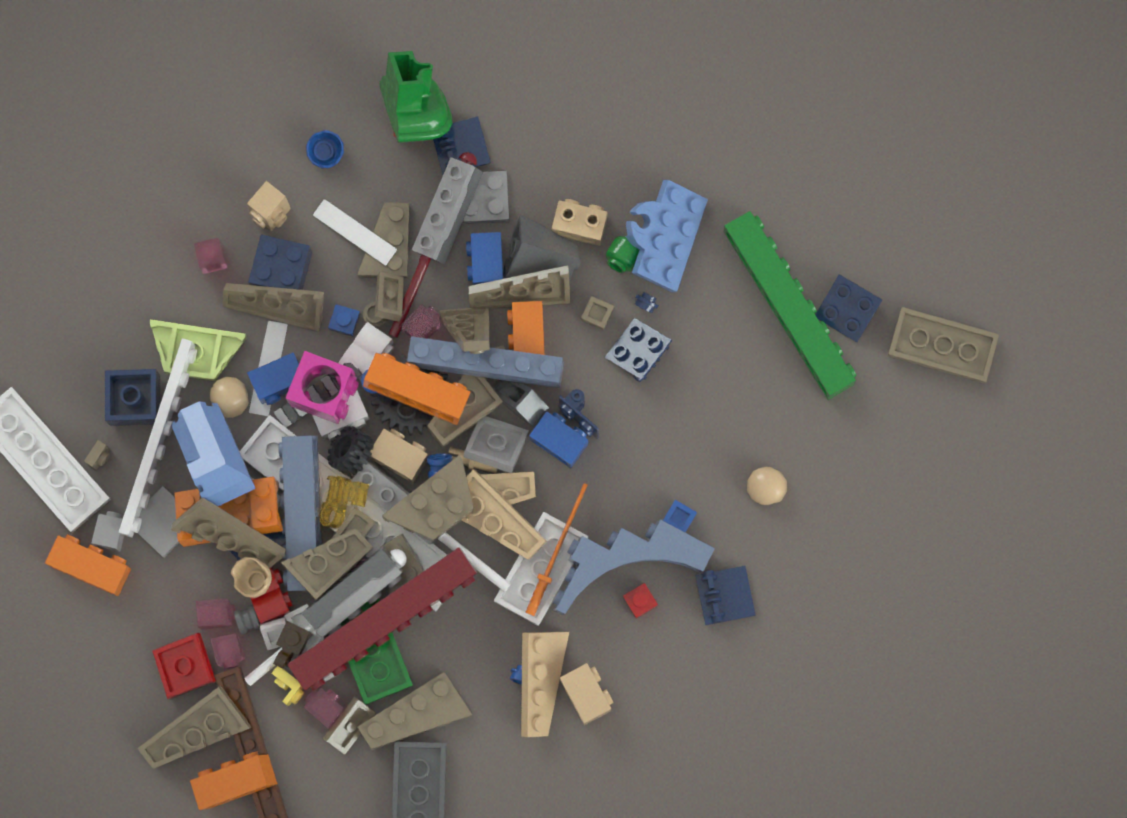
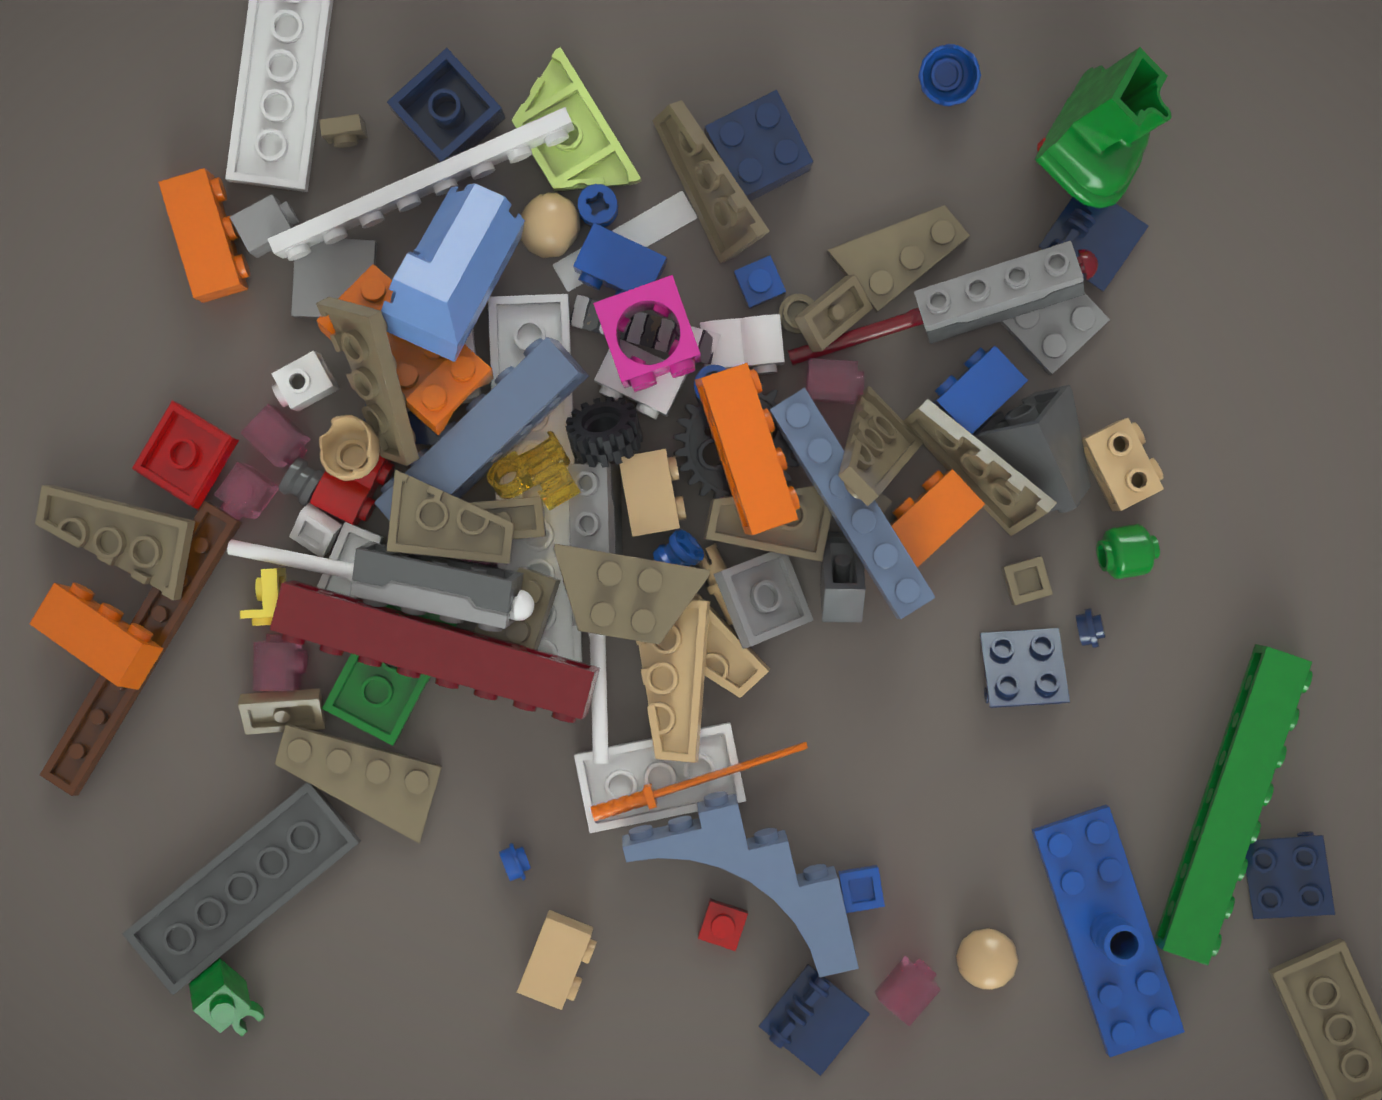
camera: 45 degrees right, 10 degrees up
(200, 577) = (304, 382): none -> white brick
(210, 255) = (700, 50): clear pink brick -> none
(242, 368) = (597, 211): none -> blue wheel
(268, 207) = (818, 69): tan brick -> none
(293, 641) = (316, 564): dark brown plate -> none
(355, 232) = (878, 201): white sticker -> none
(541, 672) = (533, 886): tan wing -> none
(559, 439) = (834, 667): blue brick -> none
(571, 409) = (884, 652): dark blue hinge -> none
(666, 234) = (1195, 582): medium blue plate -> none
(747, 534) = (908, 989): none -> clear pink brick
(829, 429) = (1095, 903): none -> blue plate

